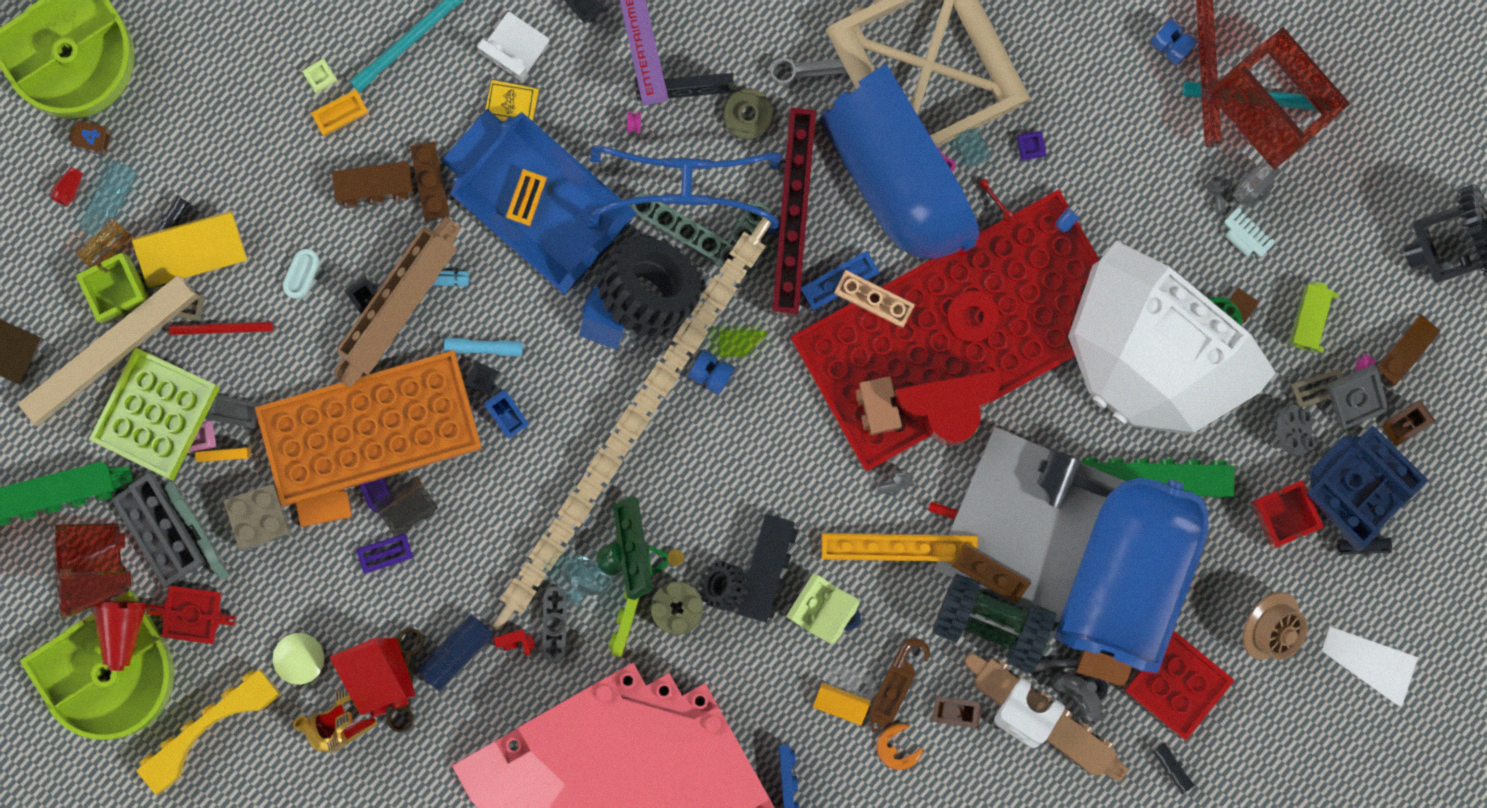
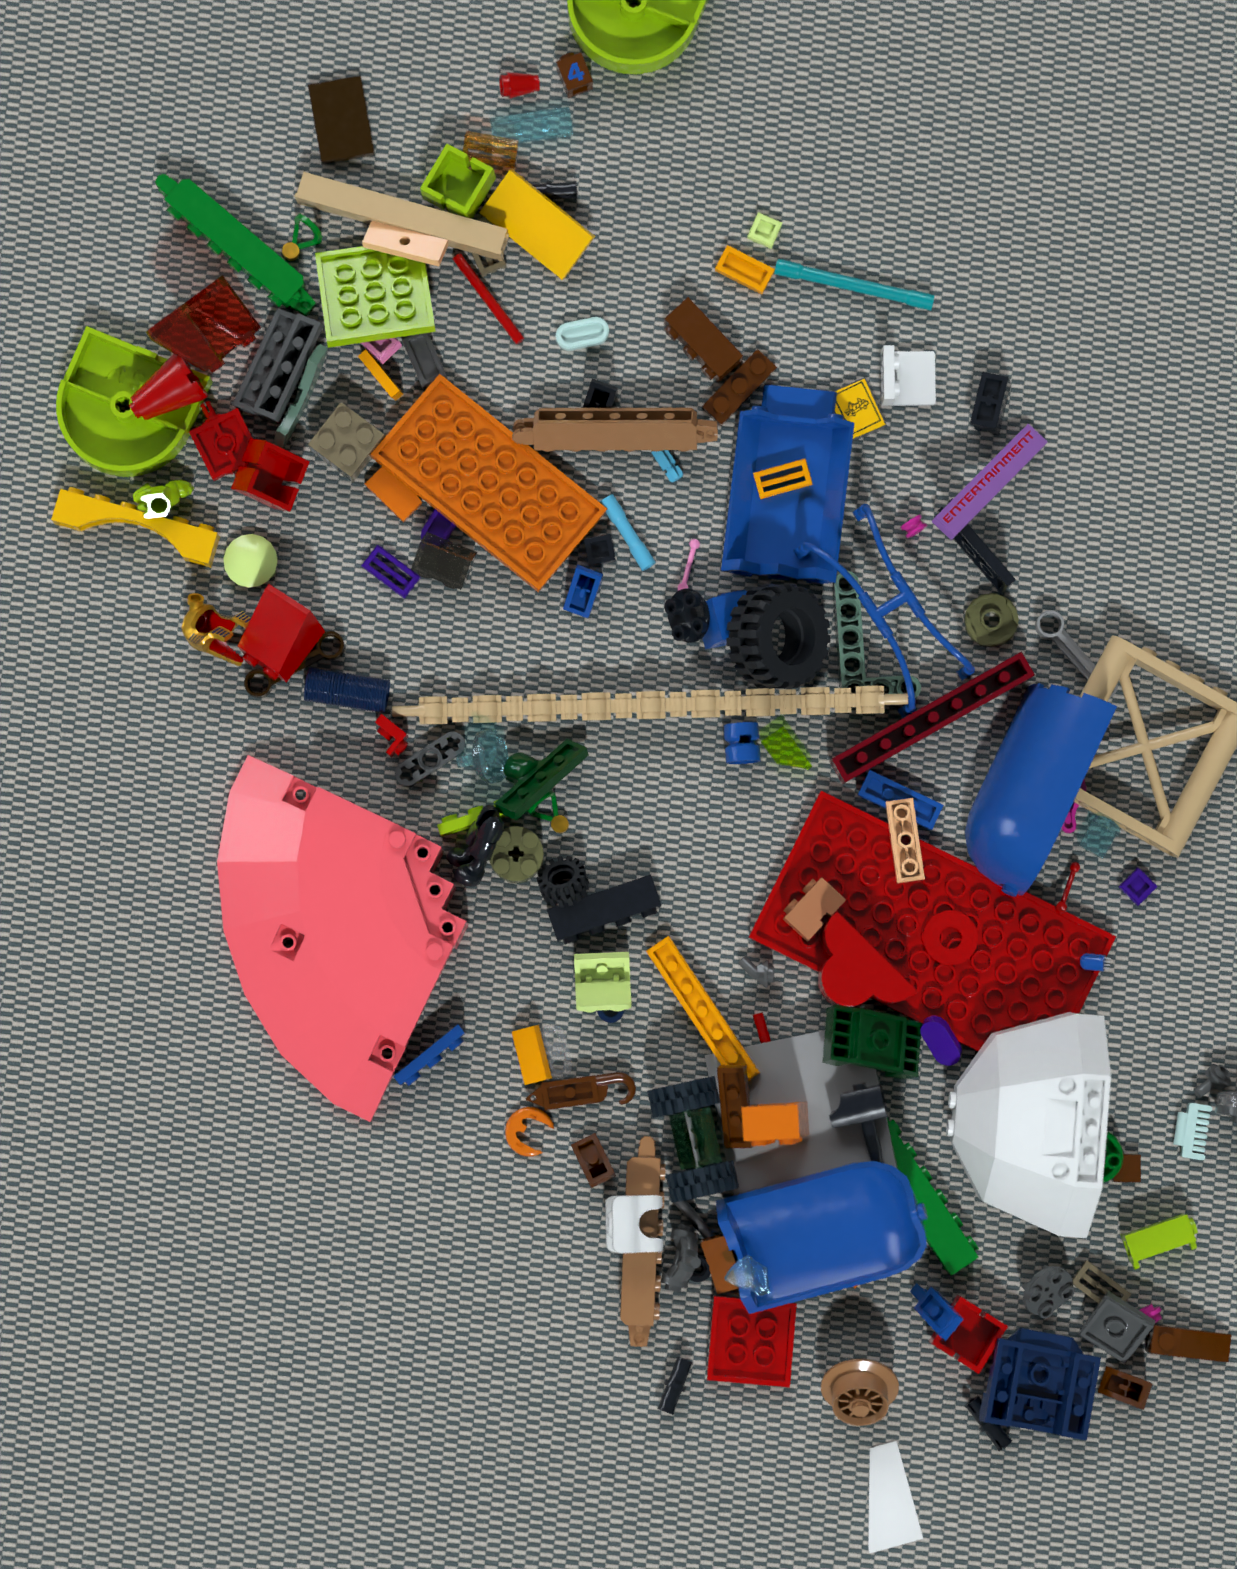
camera: 55 degrees right, 0 degrees up
(72, 456) = (291, 250): none -> green piece
(132, 363) = (405, 243): none -> light nougat tile
(200, 696) = (160, 499): none -> lime animal
(237, 599) = (265, 472): none -> red piece
(556, 333) = (694, 544): none -> bright pink hinge
(582, 345) = (687, 615): none -> black dish
(651, 629) = (482, 842): none -> black piece
(1013, 432) = (872, 1041): none -> dark green plate
(1026, 550) = (775, 1122): none -> orange brick
(1047, 378) = (941, 1040): none -> dark purple tile
(1129, 652) = (749, 1275): none -> clear light blue tile
(1254, 526) = (936, 1311): none -> blue hinge

